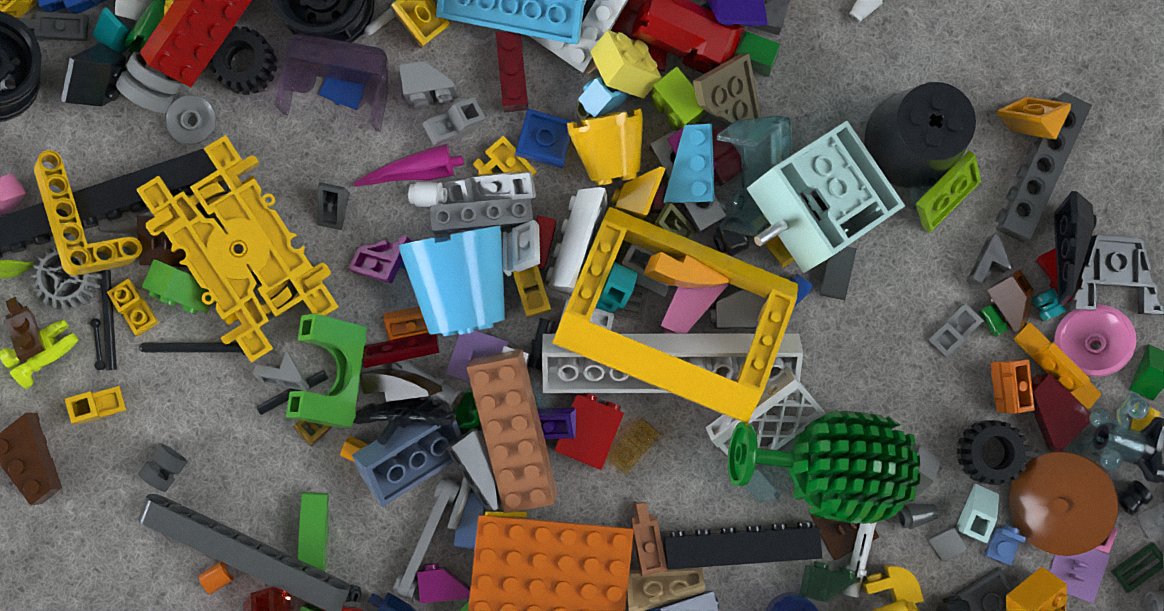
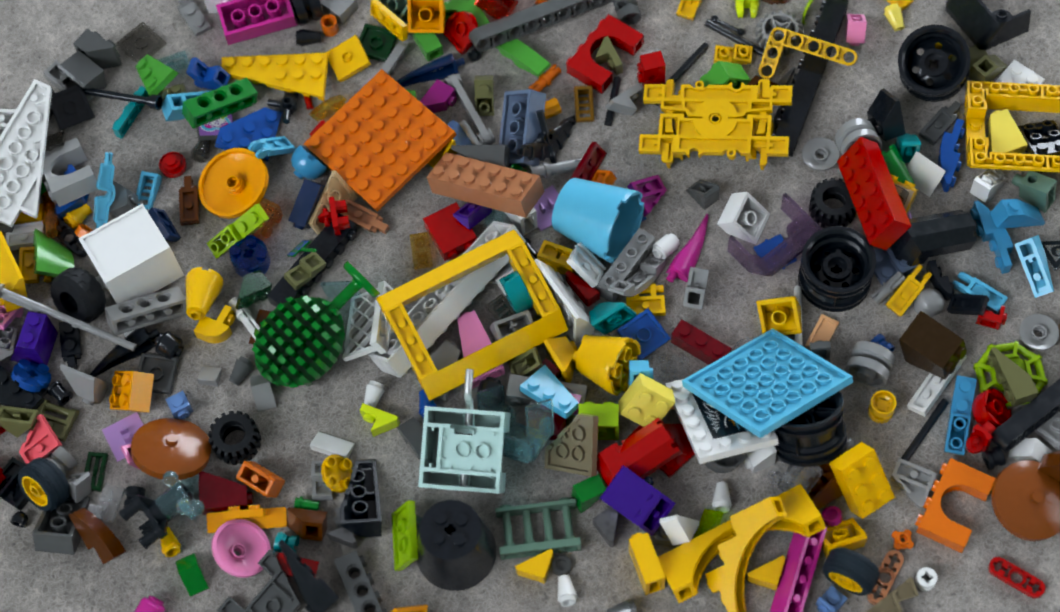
camera: 135 degrees right, 20 degrees down
(207, 462) = (583, 66): none -> red arch
(224, 372) = (651, 68): none -> red brick
(235, 443) = (608, 54): none -> olive slope
(324, 486) = (546, 78): none -> orange pin
(330, 142) = (744, 217): none -> white slope
(346, 345) = (582, 111): bright green arch -> none
(395, 537) = (484, 95): none -> olive slope
(398, 384) = (565, 149): dark brown slope -> none
(425, 85) = (732, 289): light grey slope -> none
(555, 183) = (610, 316): none -> teal slope
(671, 571) = (336, 207): none -> red hips
(683, 272) = (492, 331): light orange slope -> none
(740, 577) = (301, 247): none -> green piece
(764, 541) = (306, 270): none -> olive slope
(829, 355) = (373, 393): none -> white cone
(837, 52) = (530, 547): none -> sand green fence
(844, 29) = (561, 565): none -> dark grey tile
(847, 319) = (383, 420): none -> neon yellow slope
(869, 47) = (536, 567): none -> yellow slope
(914, 350) = (331, 445): none -> white slope
(941, 315) = (336, 472): none -> yellow dish
(950, 264) = (361, 505): none -> black wedge
(979, 514) = (208, 400): light aqua slope -> none

